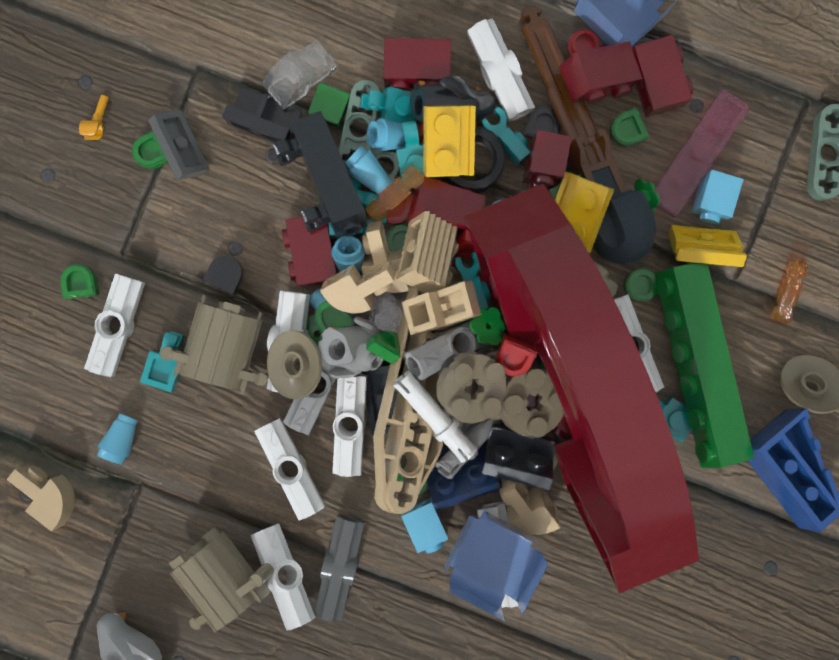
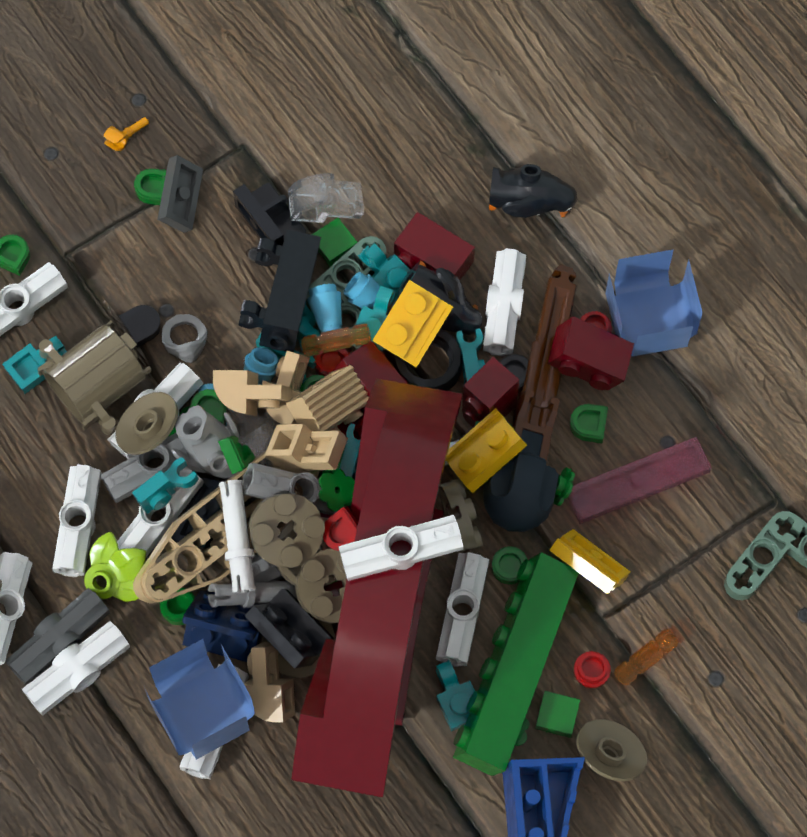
camera: 40 degrees right, 20 degrees down
(278, 275) = (188, 351): none -> light grey piece
(310, 253) = (227, 344): dark red brick -> none
(343, 417) = (159, 489): none -> teal plate
(351, 488) = (116, 566): none -> lime plate
(370, 582) = (76, 668): none -> white piece
(425, 527) = (159, 642): medium azure brick -> none
(653, 370) = (427, 542): none -> white piece
(664, 80) = (644, 392): dark red brick -> none
(716, 197) = (629, 526): medium azure brick -> none
(752, 378) = (557, 714): none -> green tile
(755, 328) = (592, 669): none -> red plate

